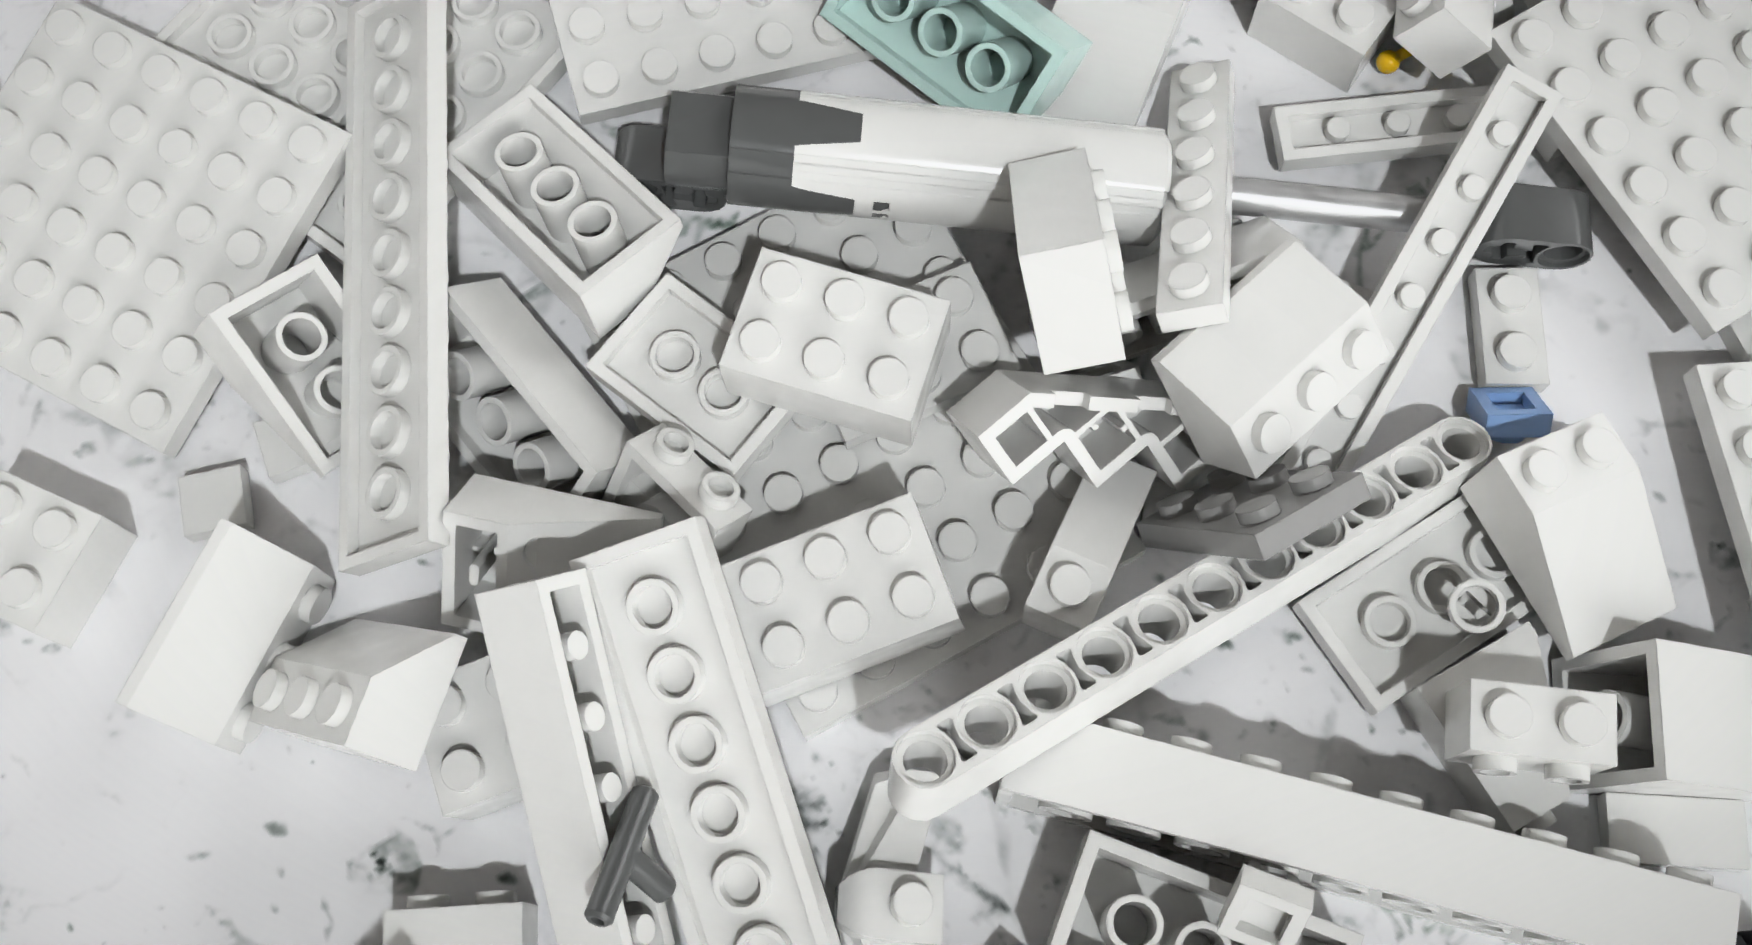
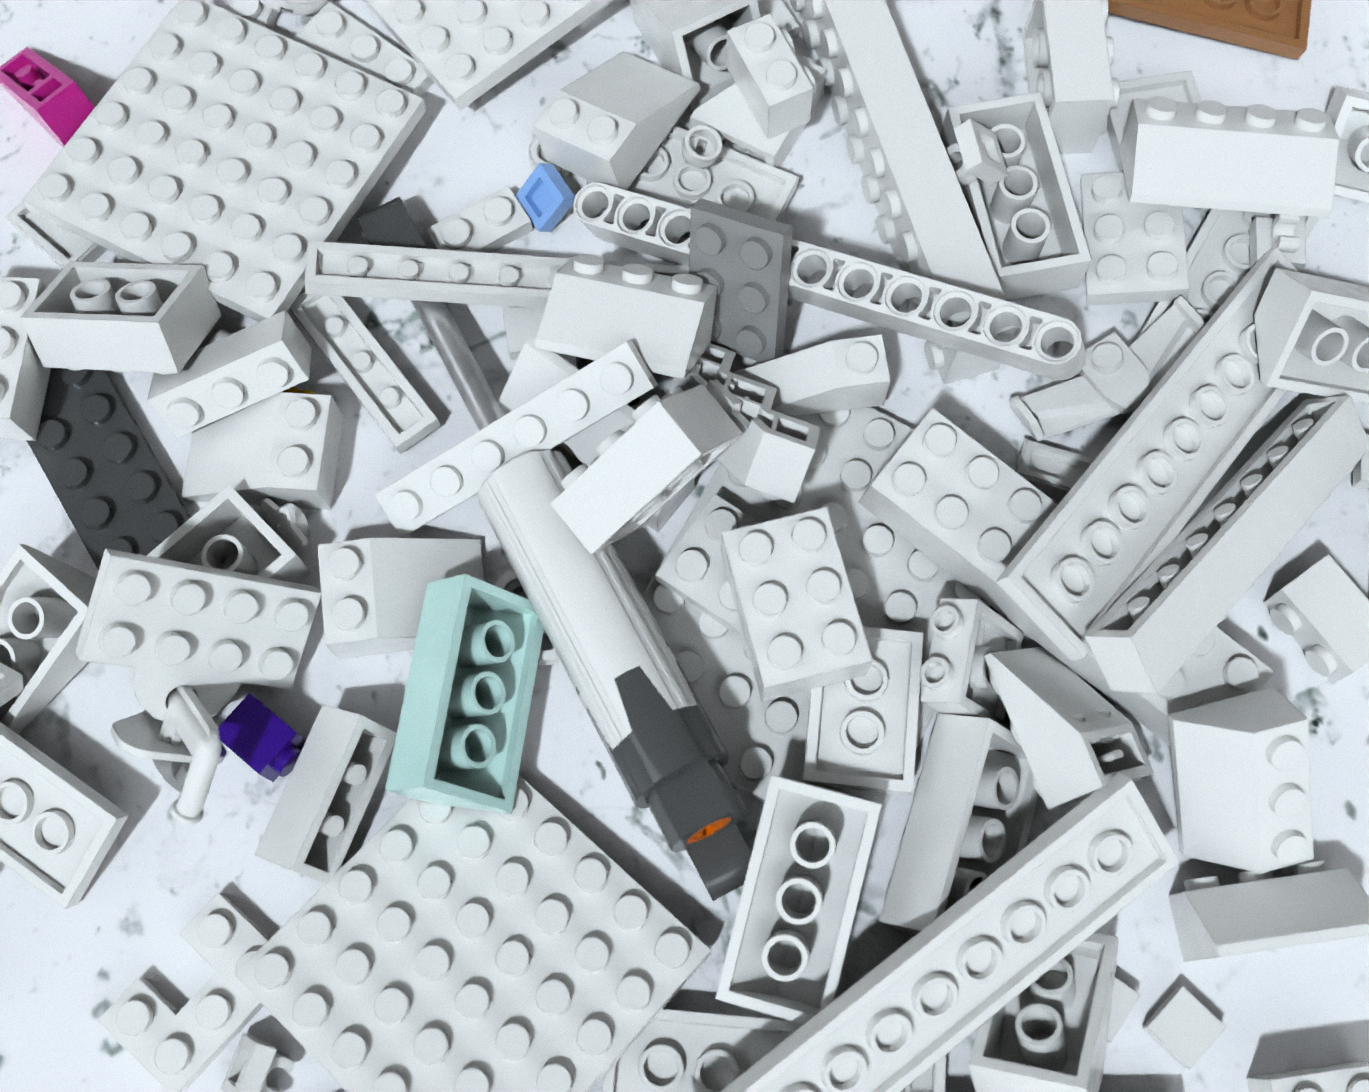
camera: 125 degrees left, 0 degrees up
(628, 862) = (1230, 500): dark grey piece -> none
(830, 767) = (1051, 468): none -> white tile

